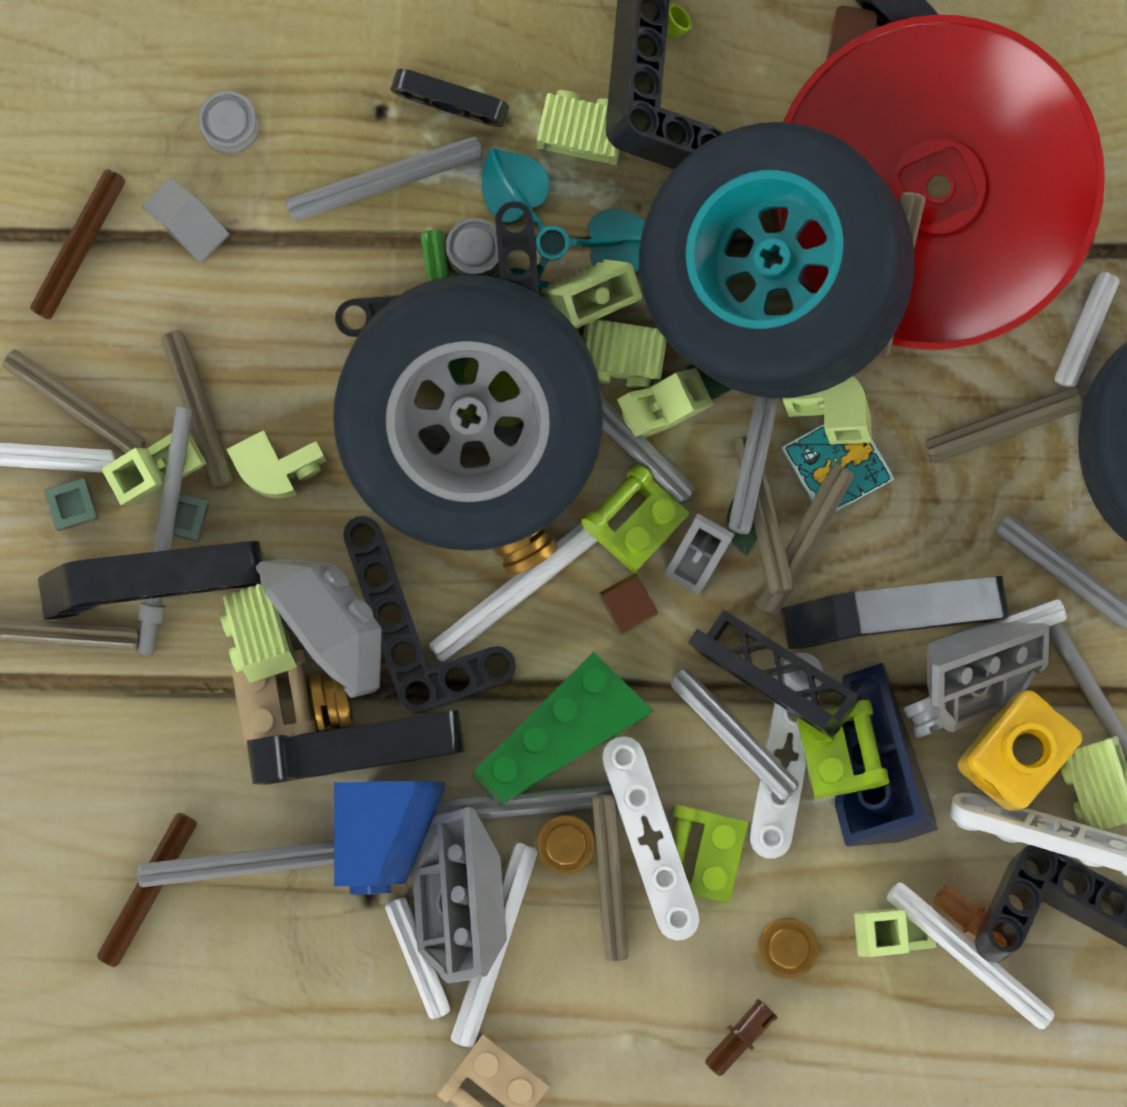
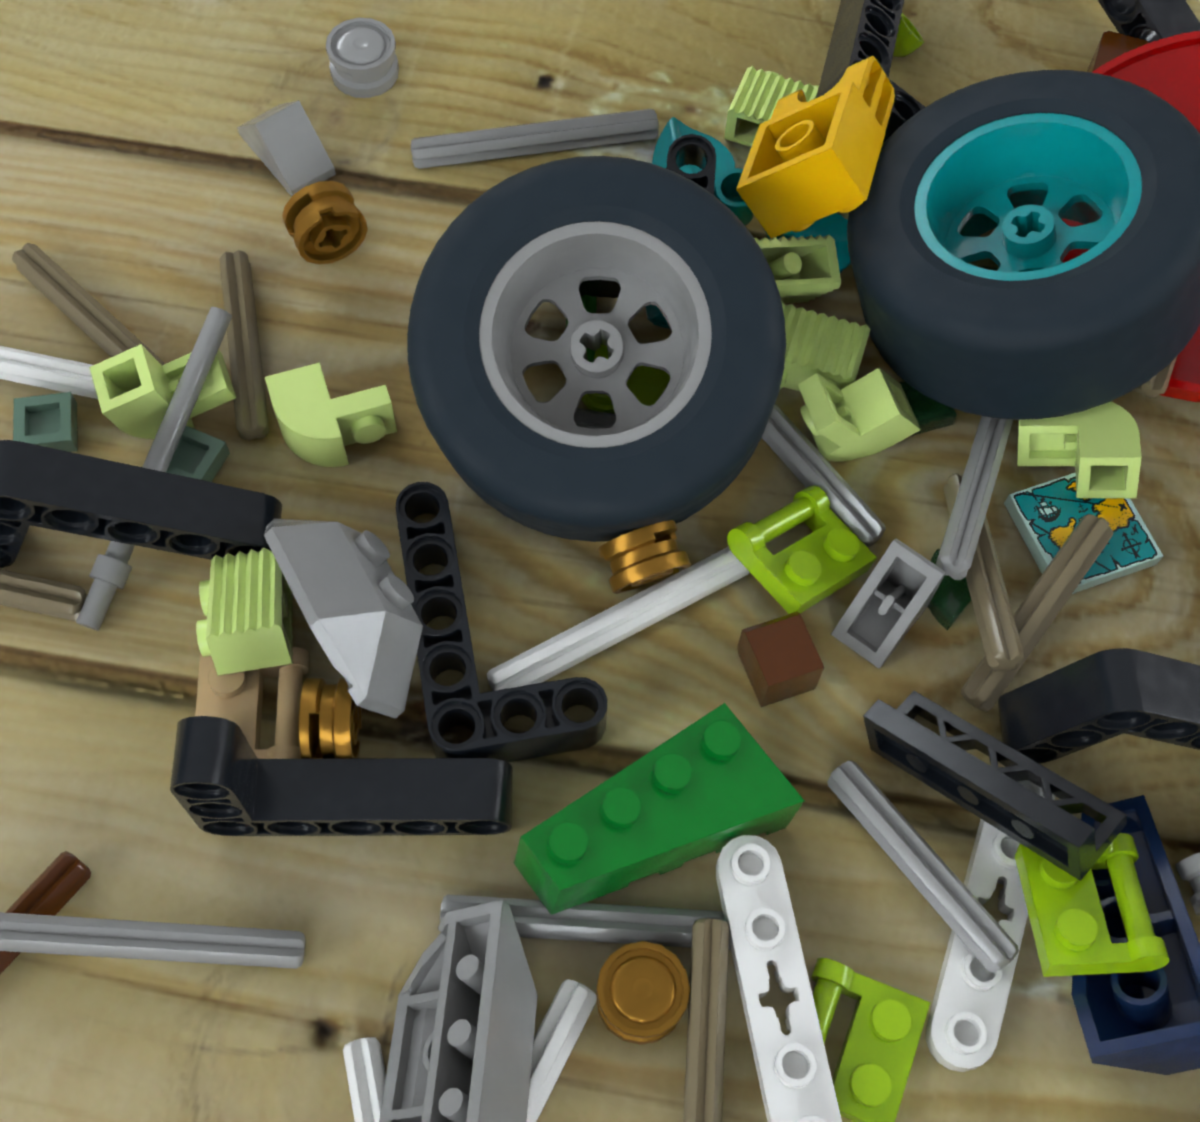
camera: 10 degrees right, 20 degrees down
(77, 244) = (146, 153): reddish brown axle -> none
(237, 298) = (324, 222): none -> pearl gold wheel
(380, 831) = (359, 913): blue slope -> none
(449, 97) = (598, 58): black beam -> none
(610, 202) = (818, 152): none -> yellow brick

